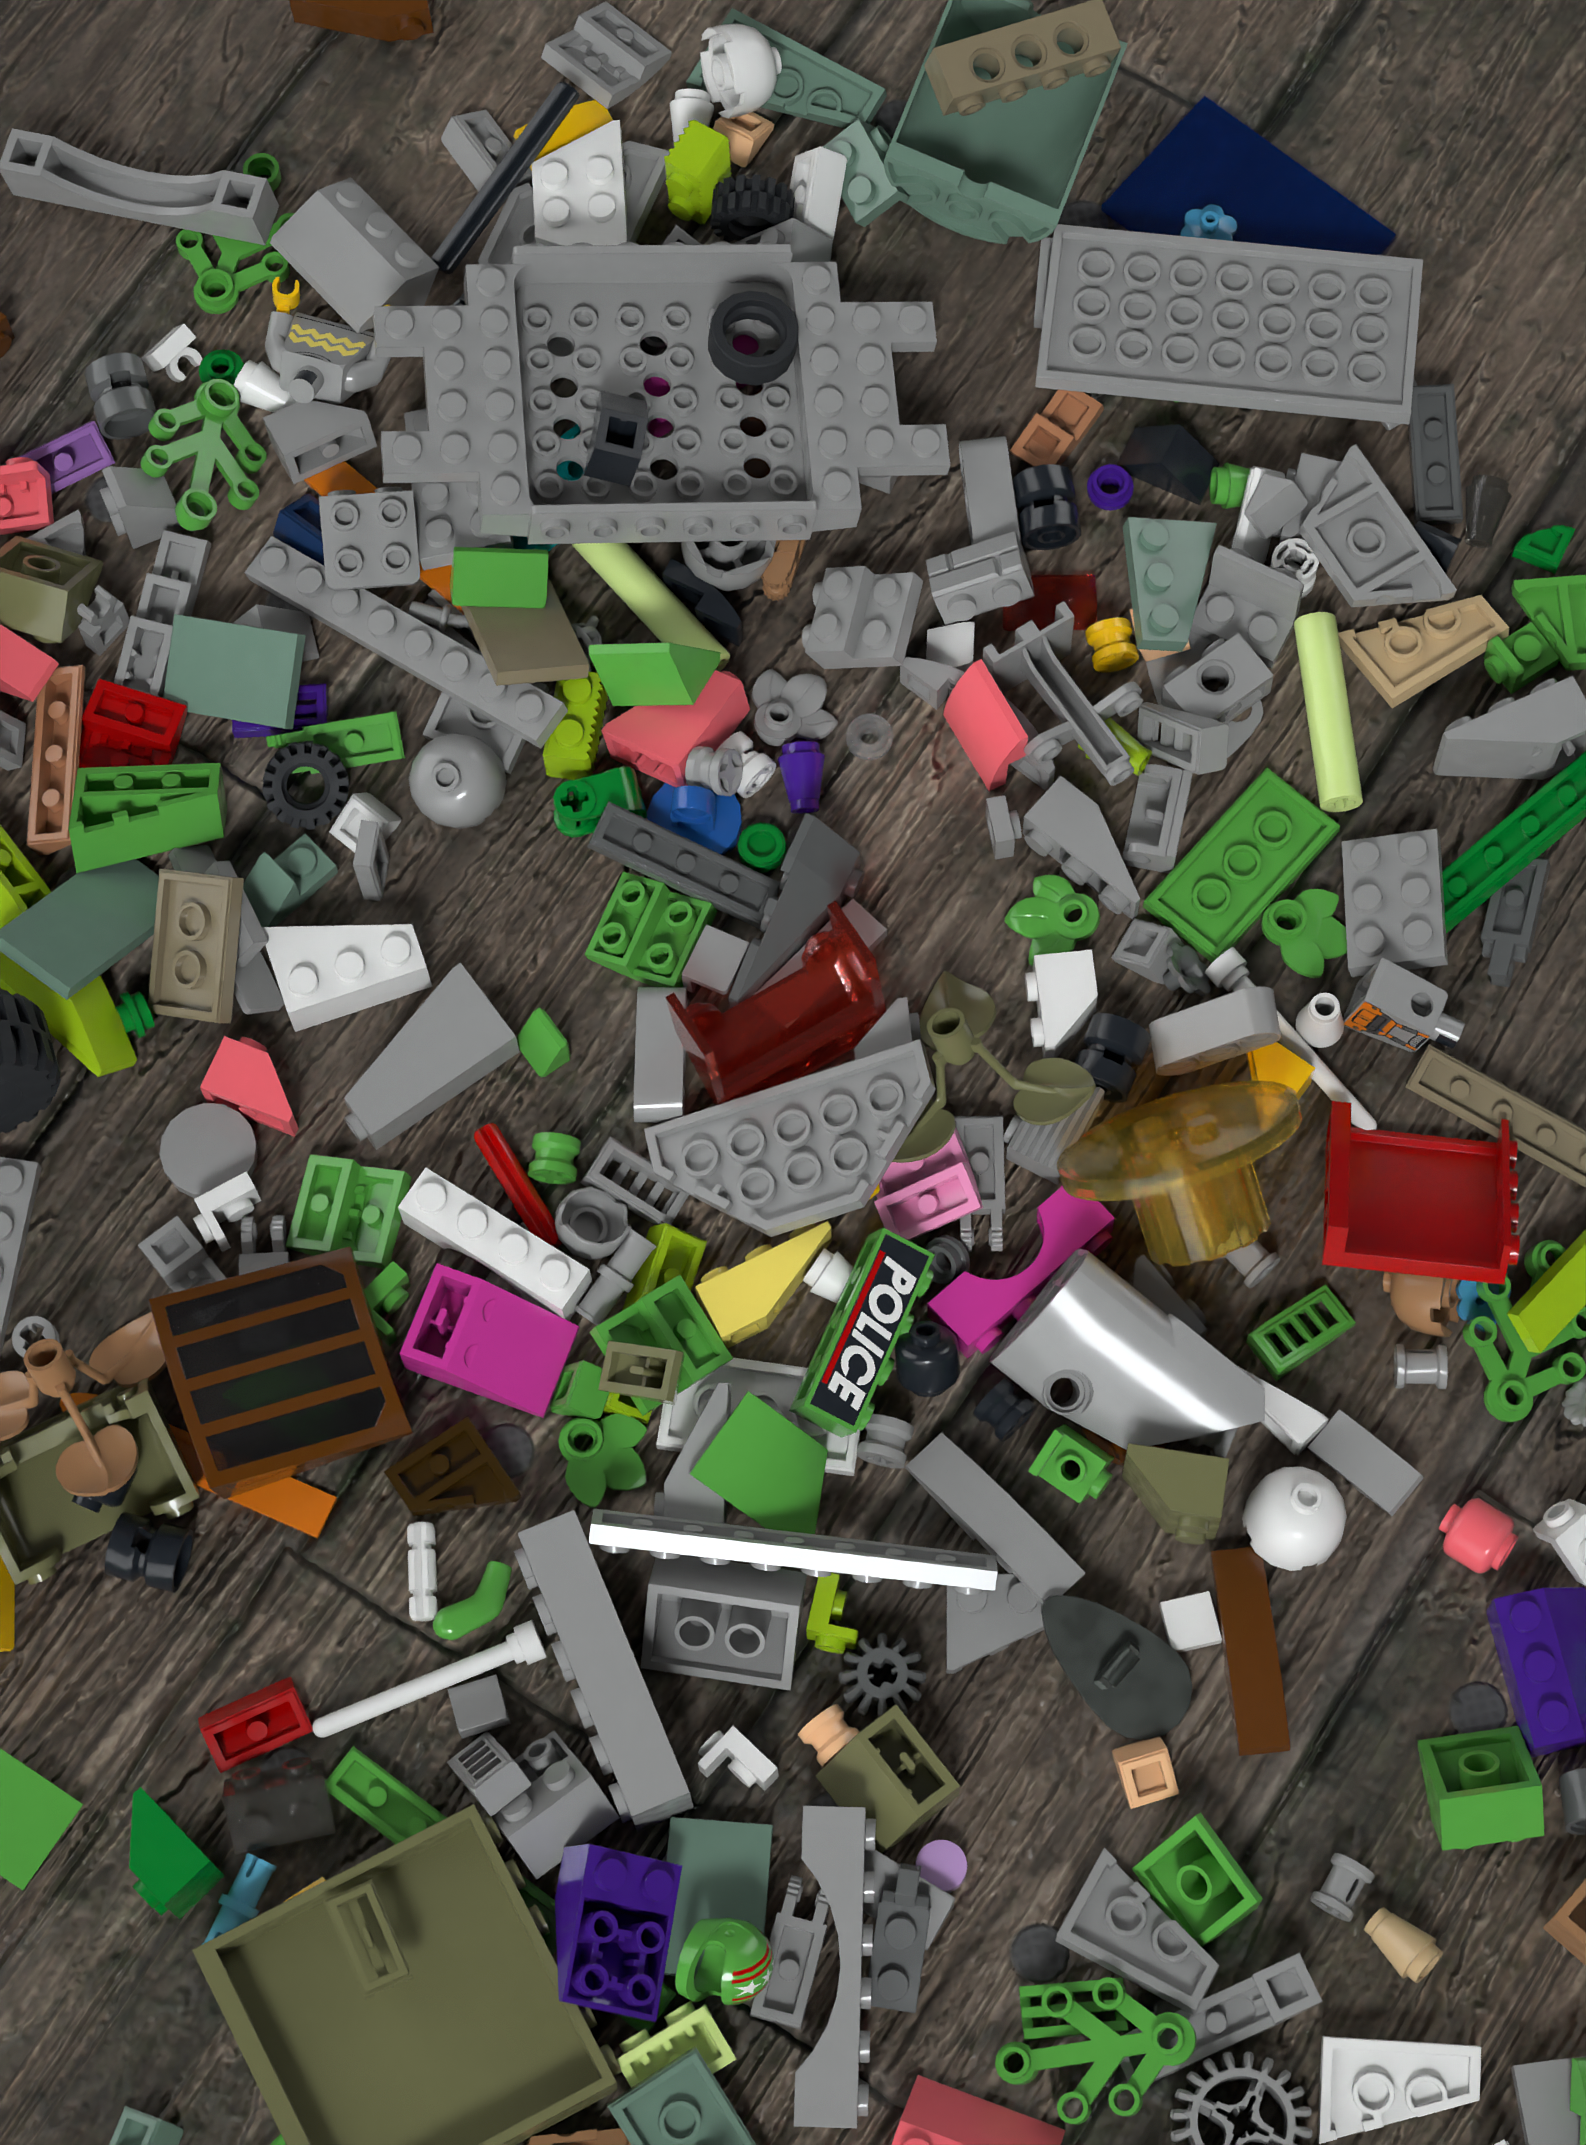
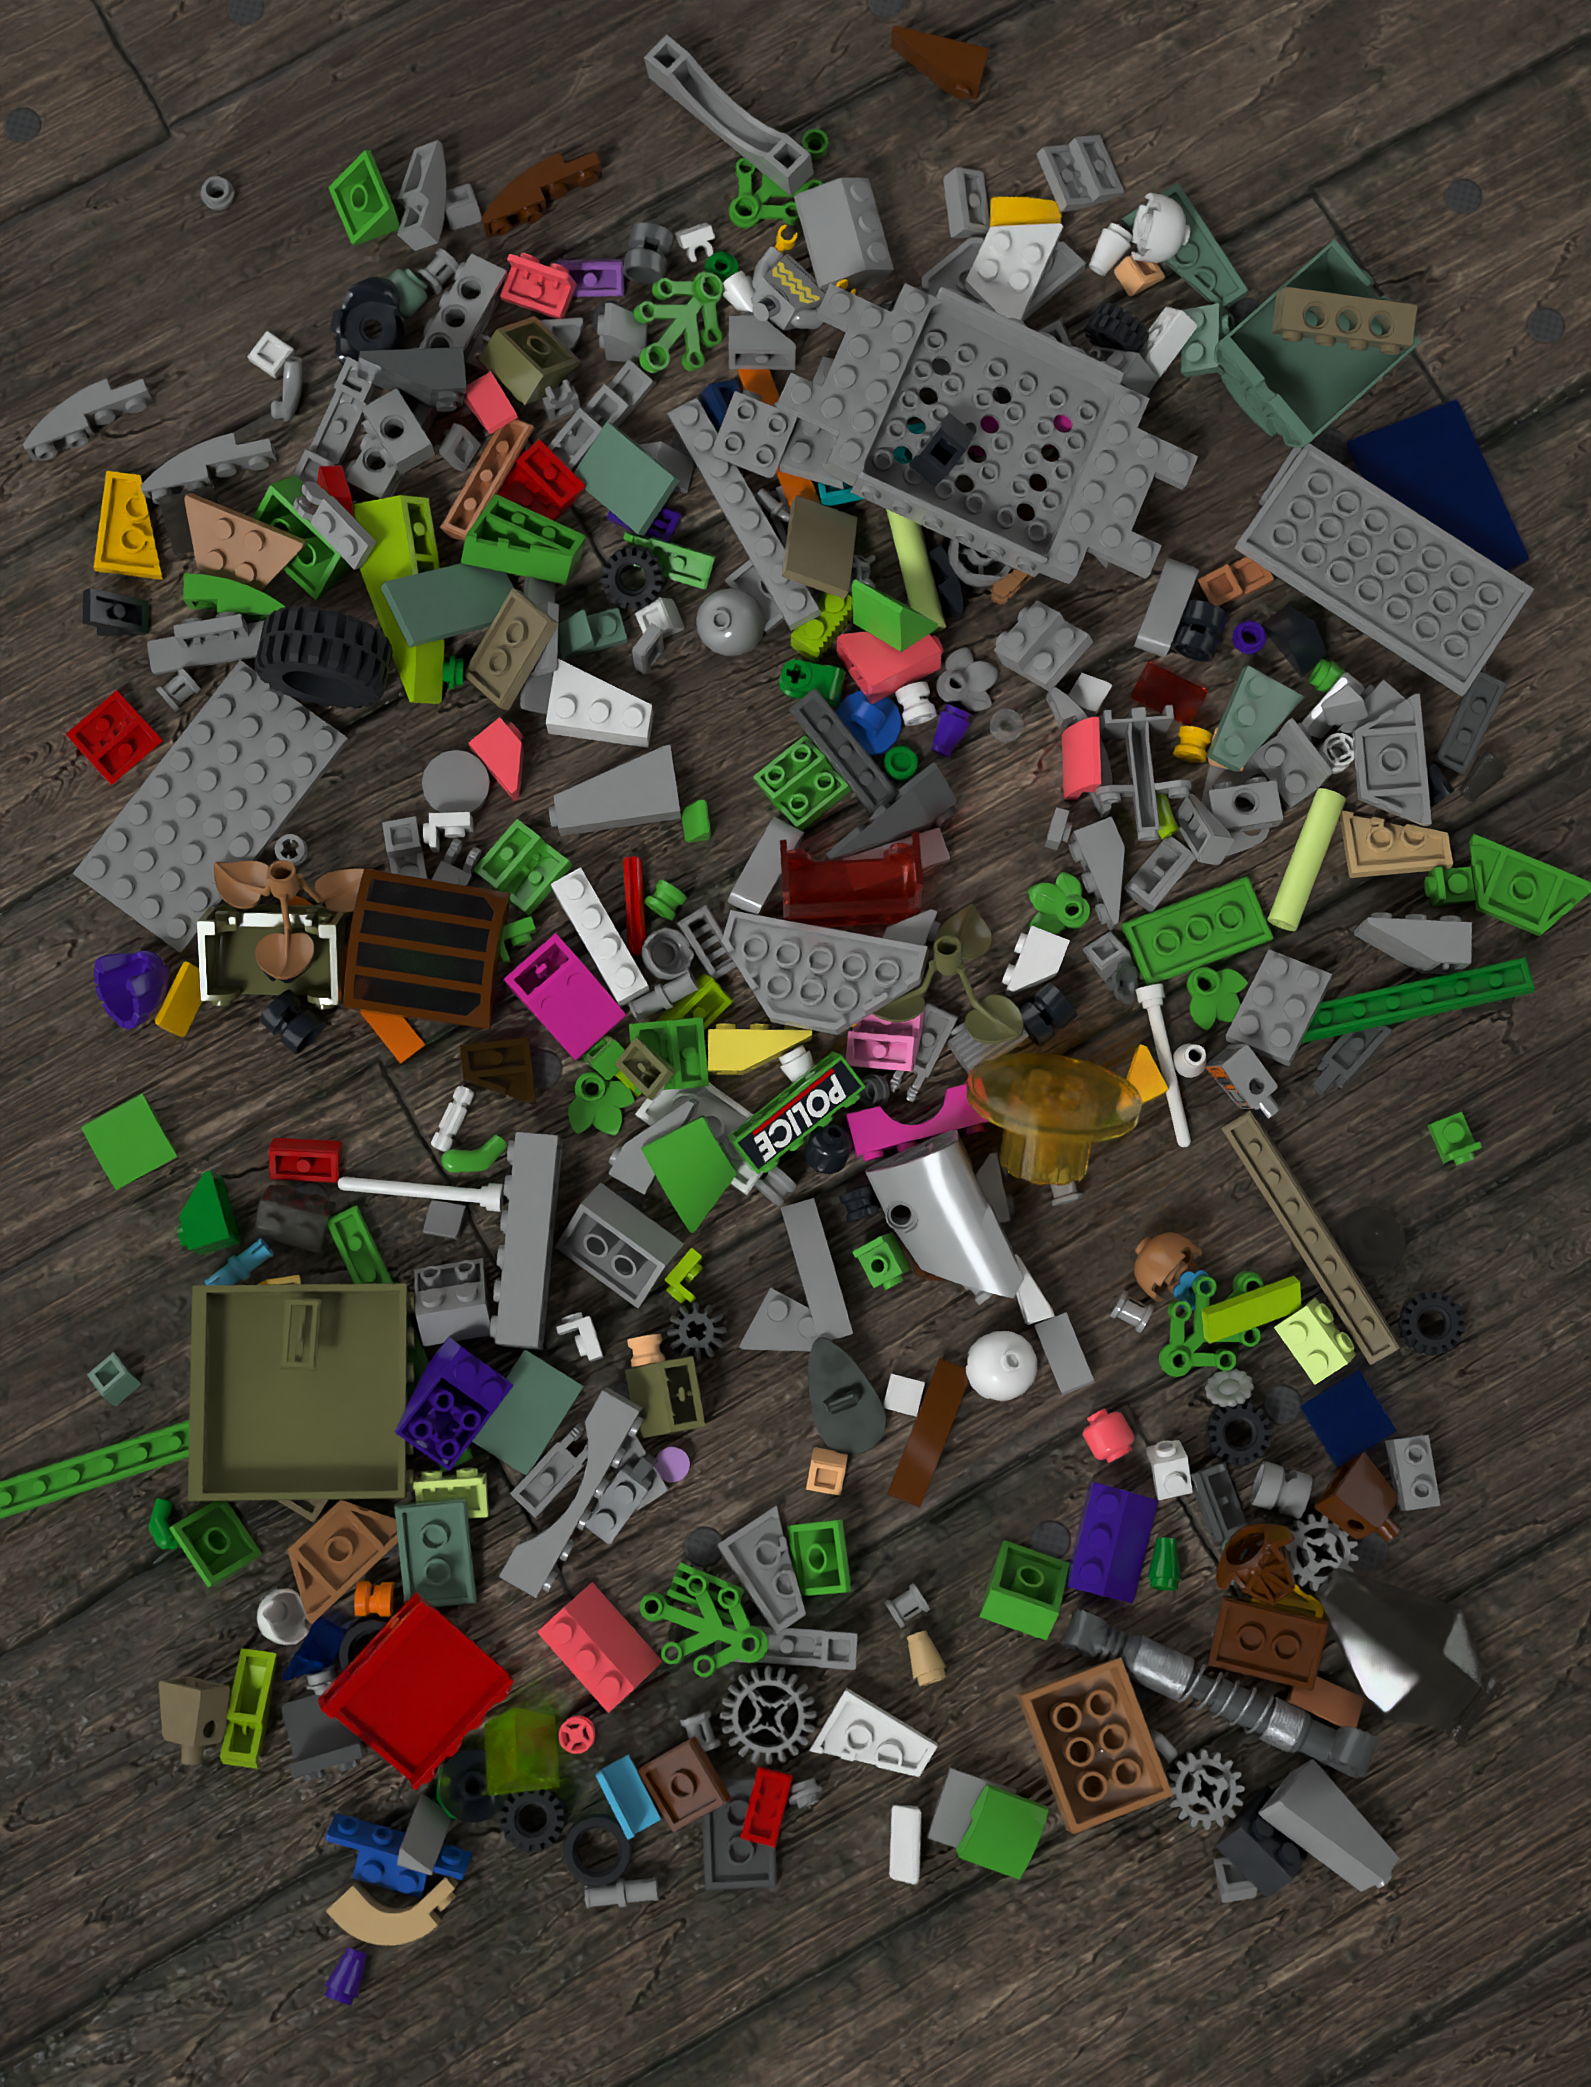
camera: 20 degrees right, 10 degrees up
(489, 1773) = (427, 1266): light grey slope -> none
(499, 577) = (822, 503): bright green slope -> none
(505, 177) = (969, 227): black axle -> none
(694, 169) = (1094, 285): lime brick -> none
(714, 770) = (893, 701): light grey wheel -> none
(714, 961) = (830, 825): light grey panel -> none
(734, 1963) = (513, 1461): bright green helmet -> none
(760, 307) = (1080, 403): black tyre -> none
(776, 1548) = (680, 1227): plate -> none
(980, 578) = (1130, 658): light grey brick -> none
(1178, 1489) = (938, 1313): olive slope -> none
(1209, 224) = (1401, 492): dark azure plant -> none
(1214, 1031) = (1118, 1033): light grey beam -> none
(1268, 1353) = (1043, 1256): bright green slope -> none
(1419, 1202) = (1185, 1210): red panel -> none
(1545, 547) = (1508, 820): green tile -> none

